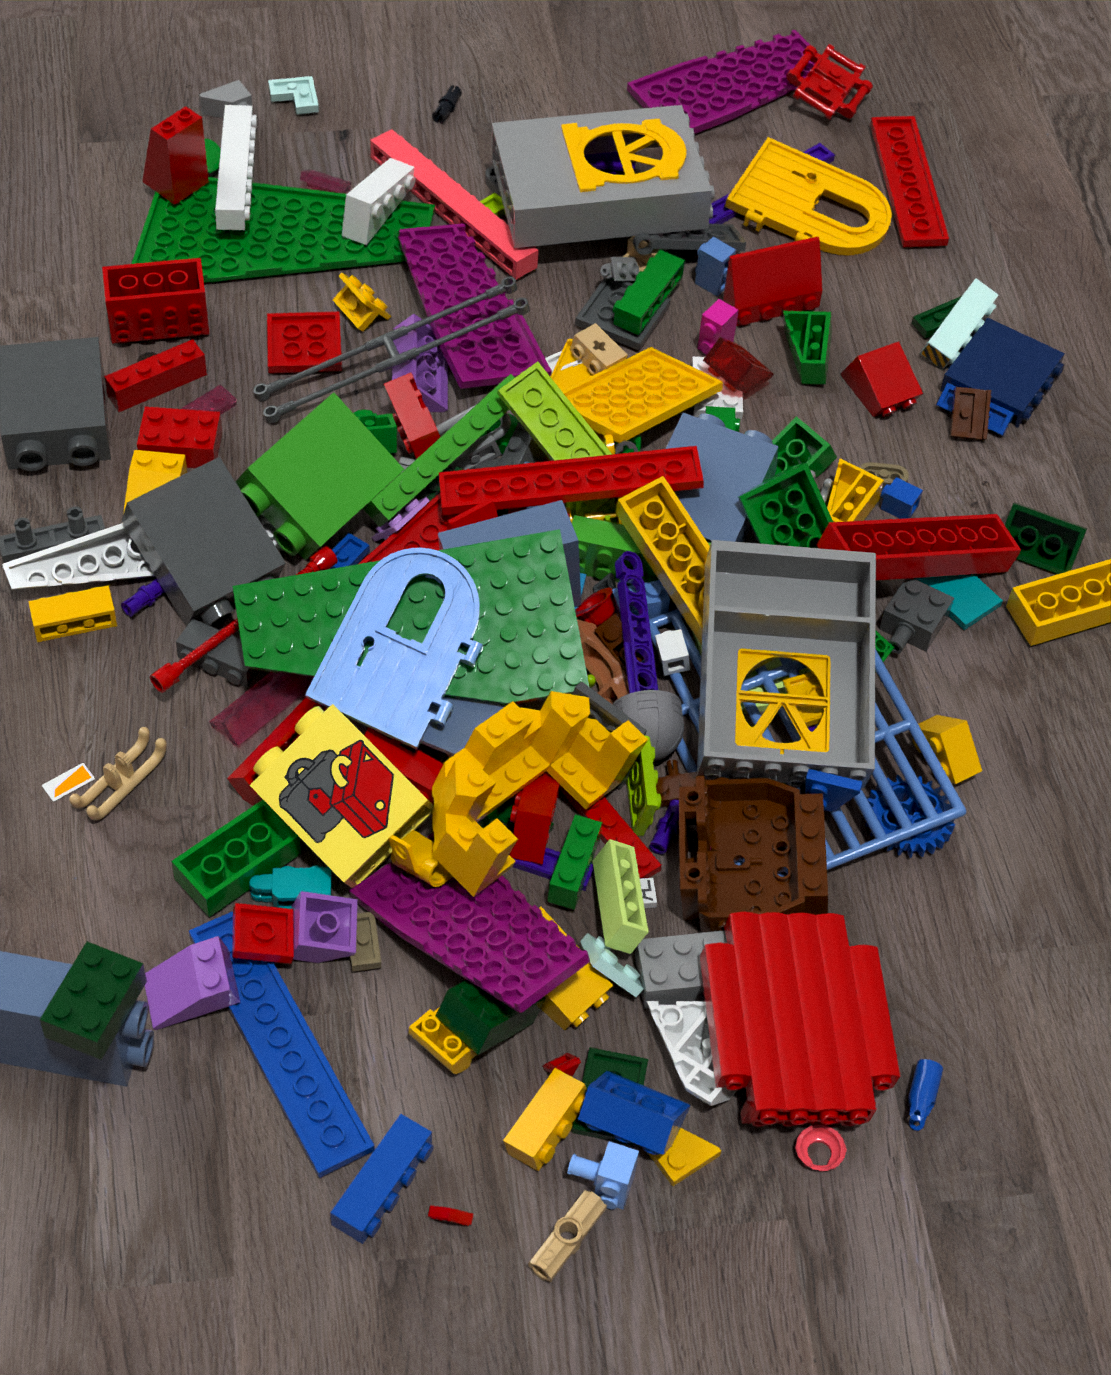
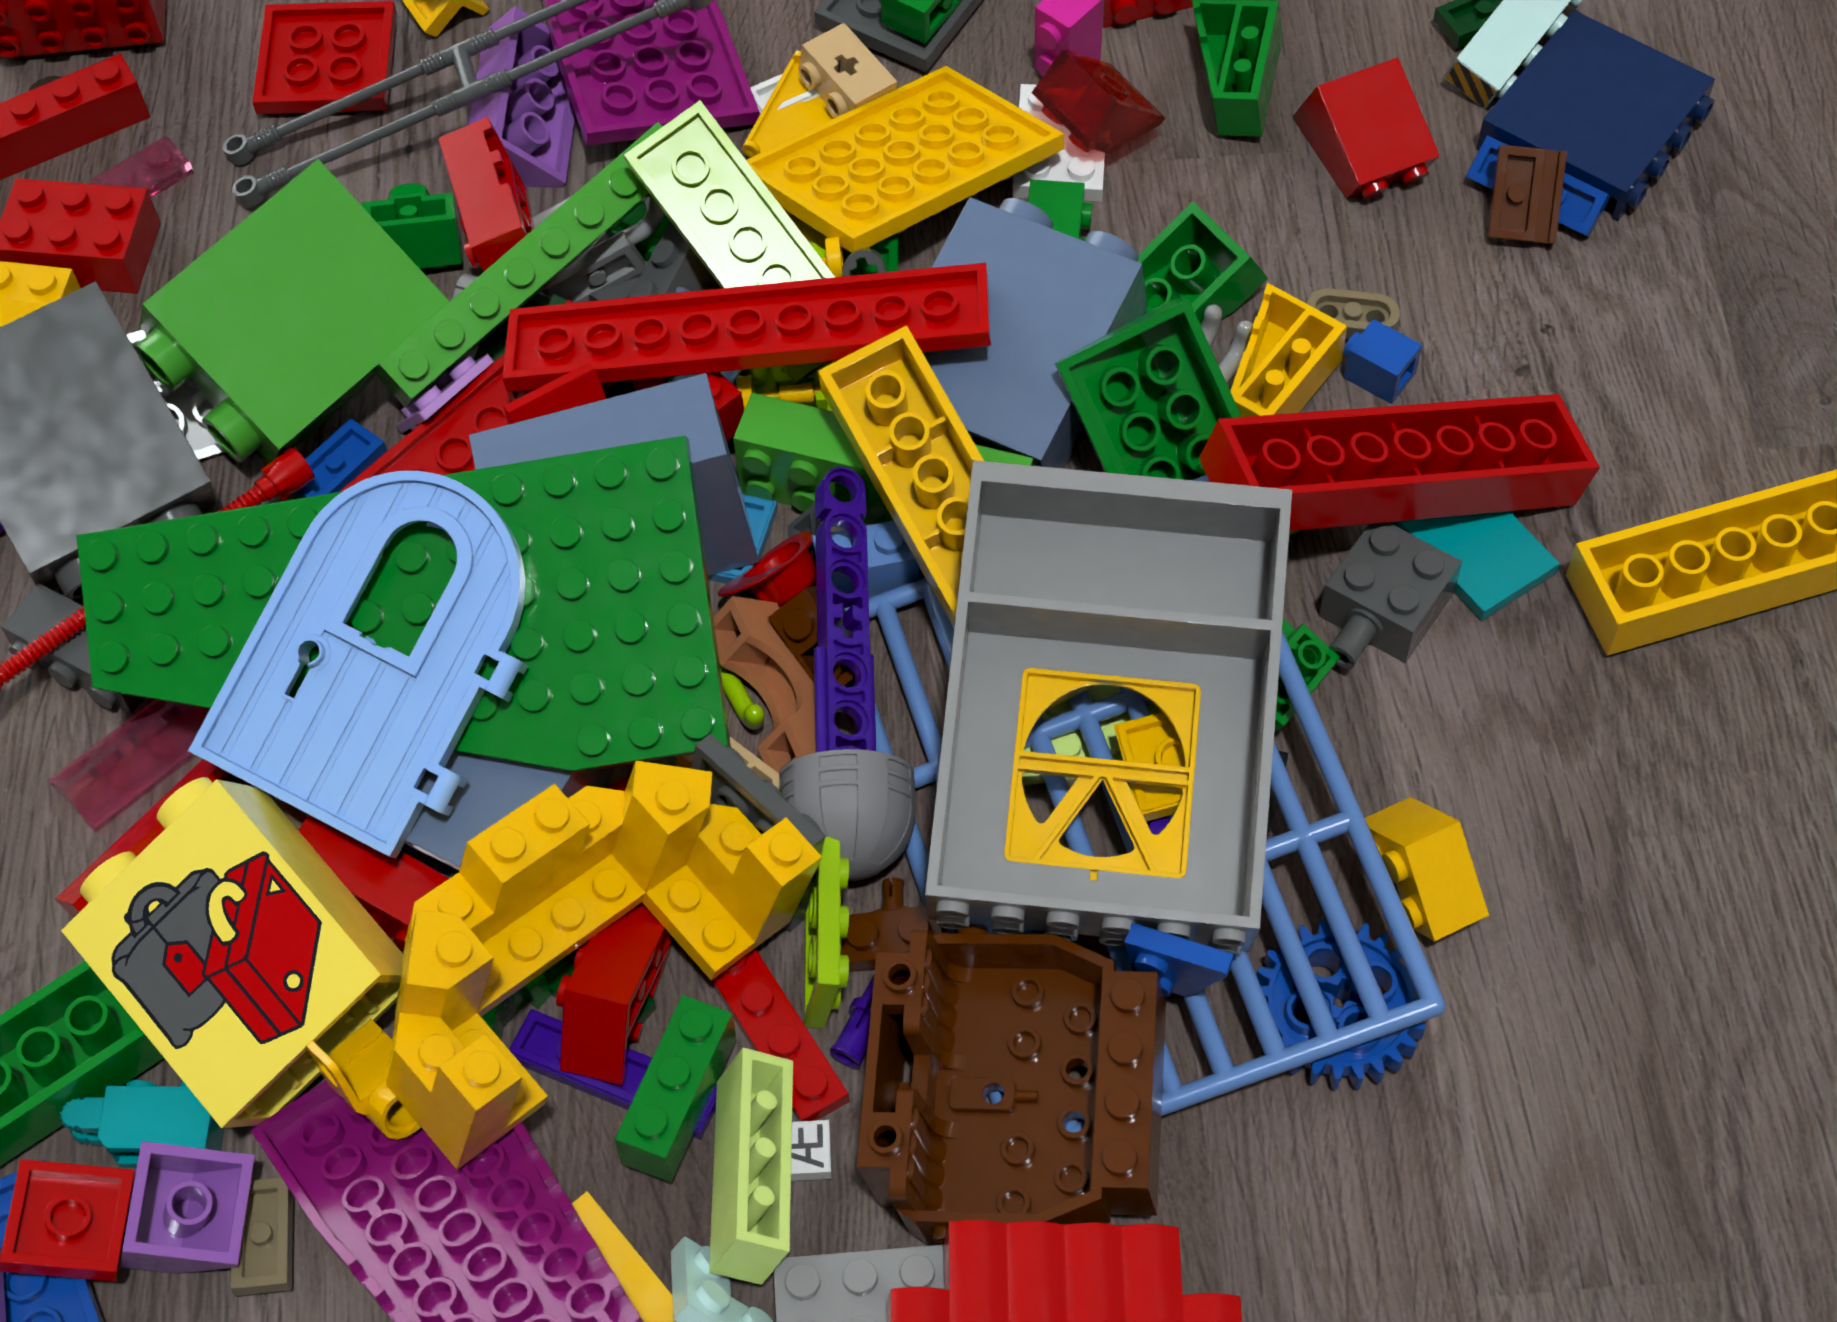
camera: 10 degrees right, 5 degrees up
(672, 652) = (912, 662): white brick -> none
(1045, 538) = (1650, 441): dark green slope -> none

